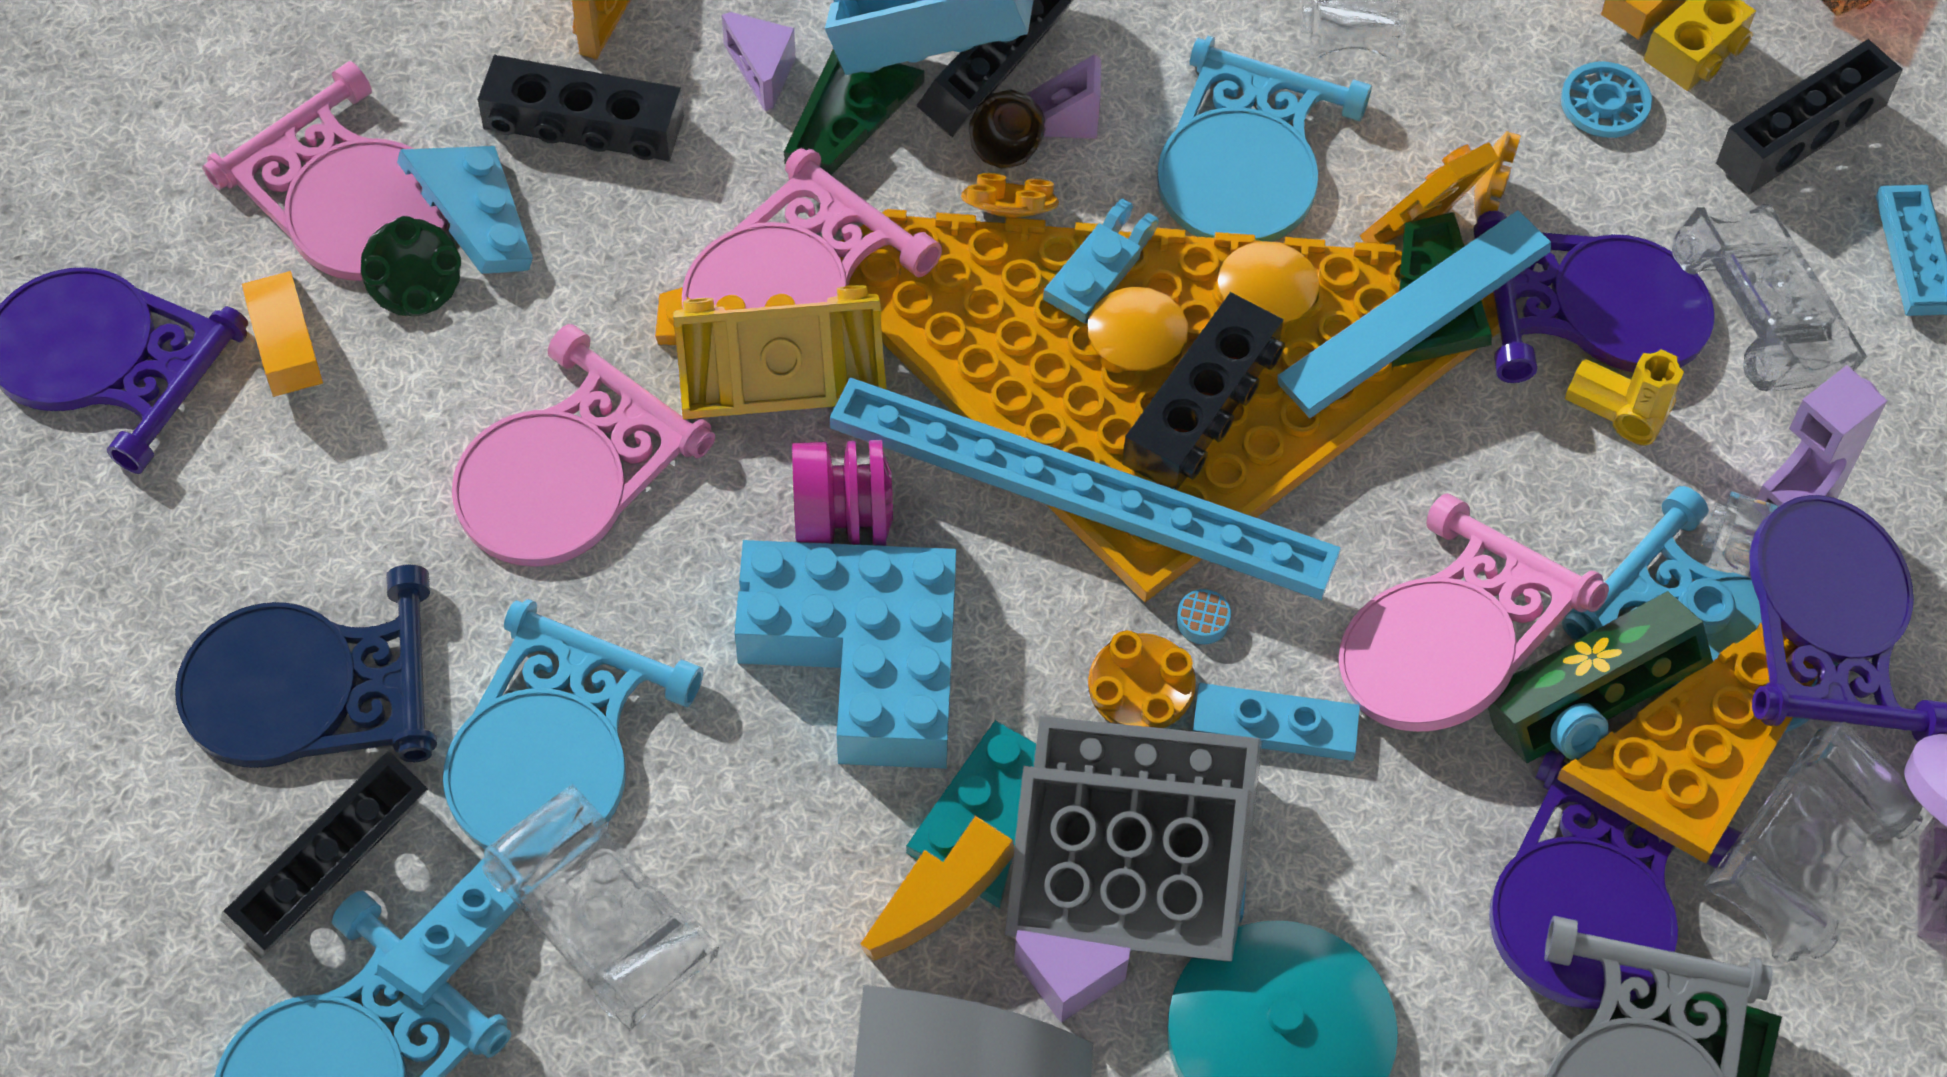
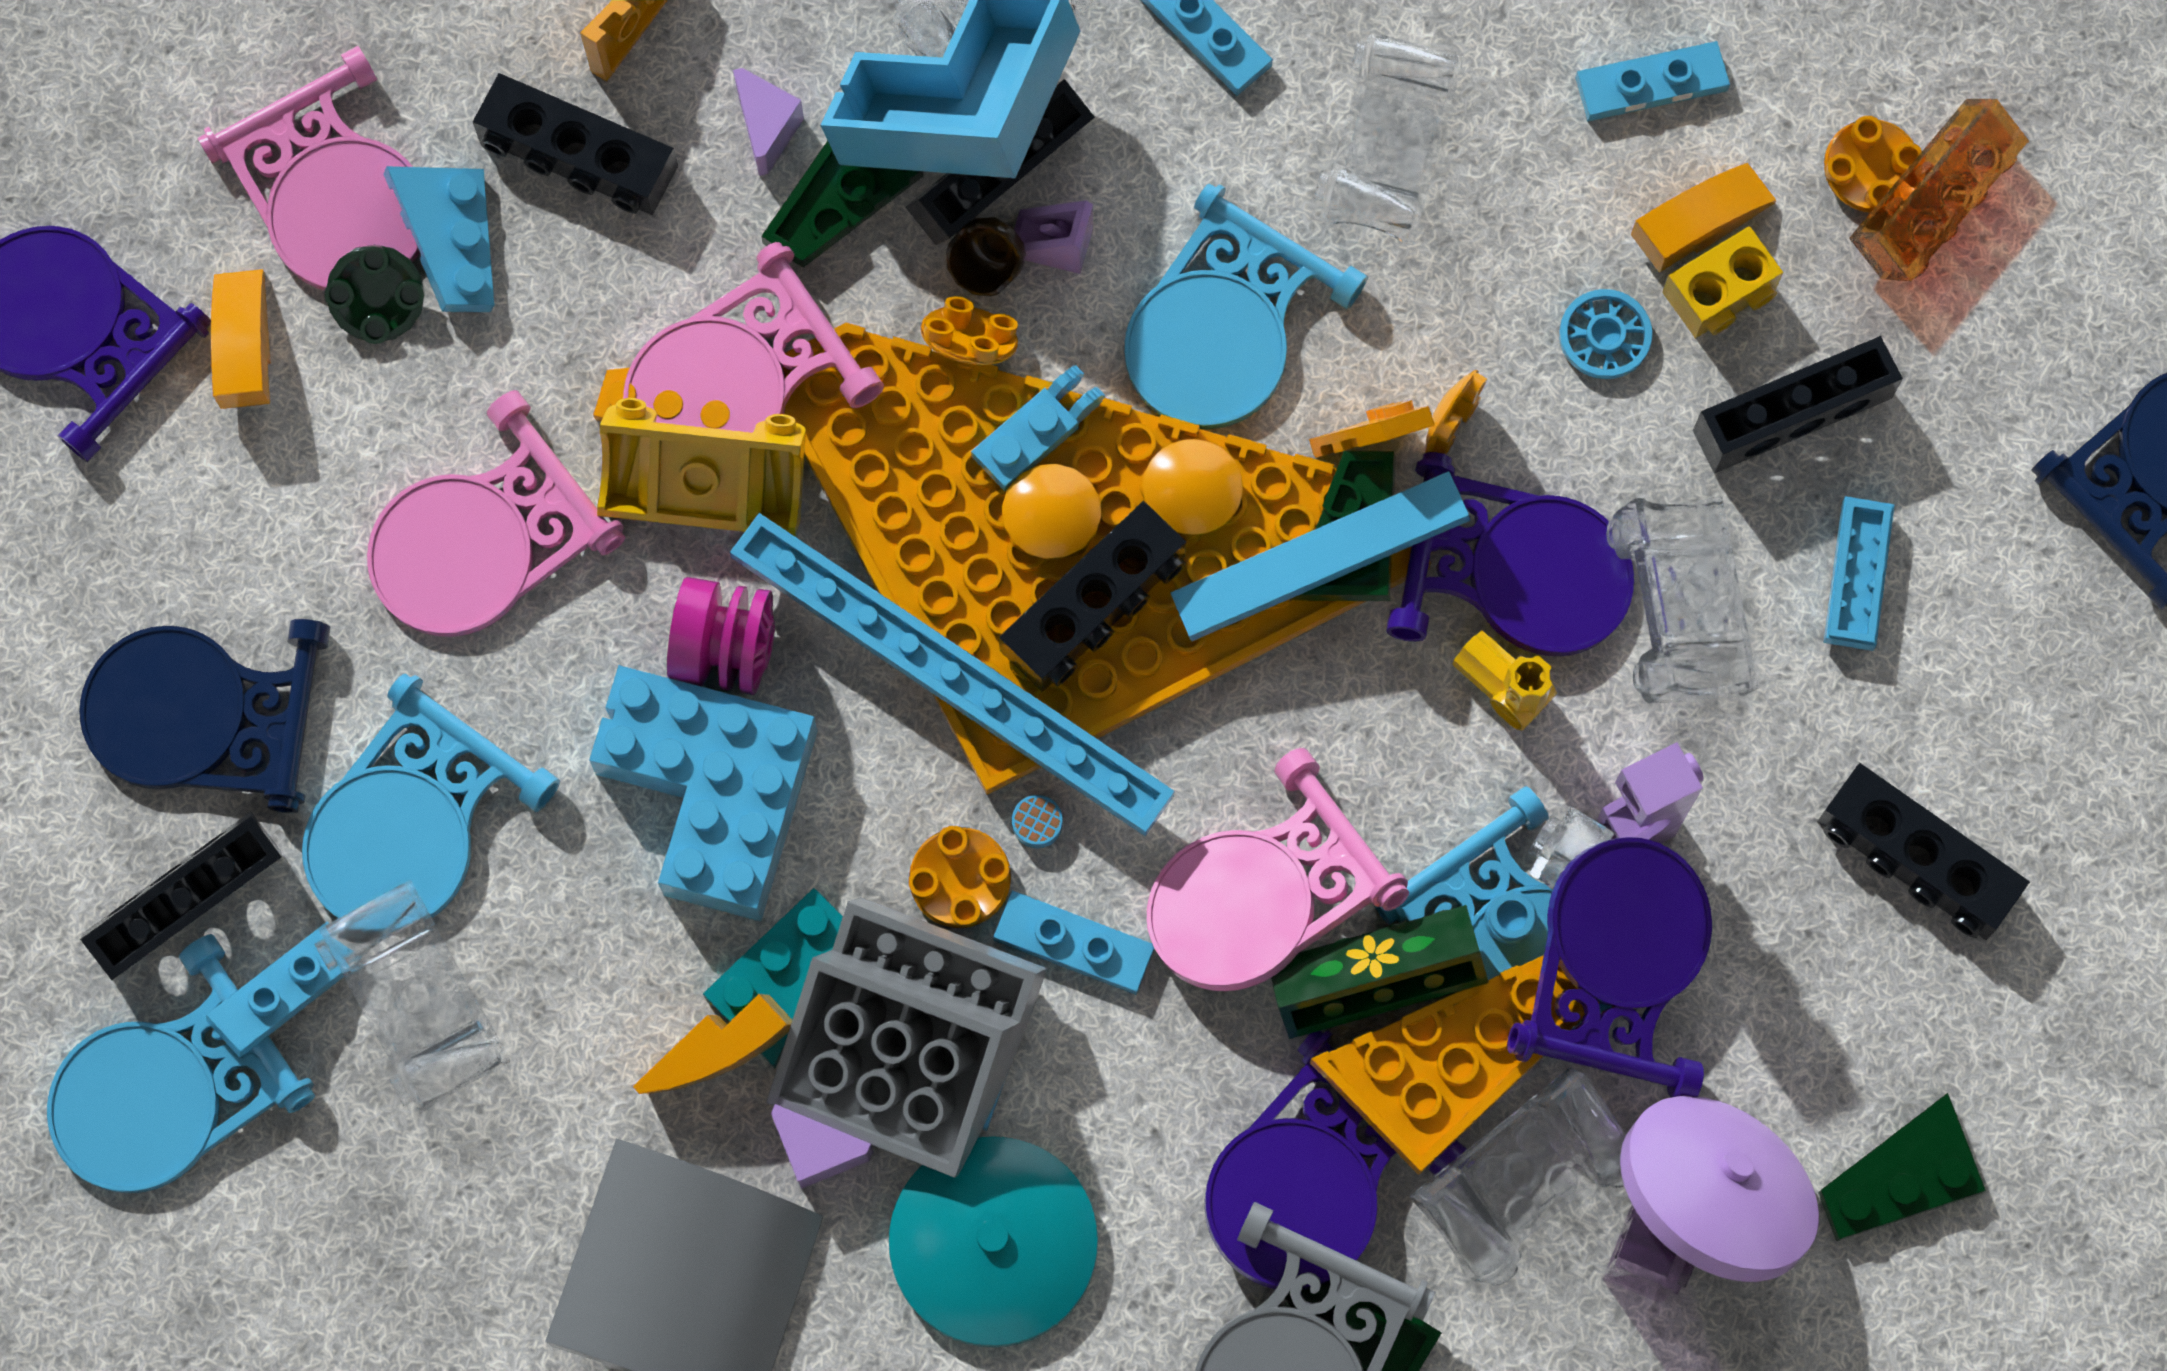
camera: 15 degrees right, 15 degrees up
(1578, 730) = (1341, 1023): medium azure tile -> none

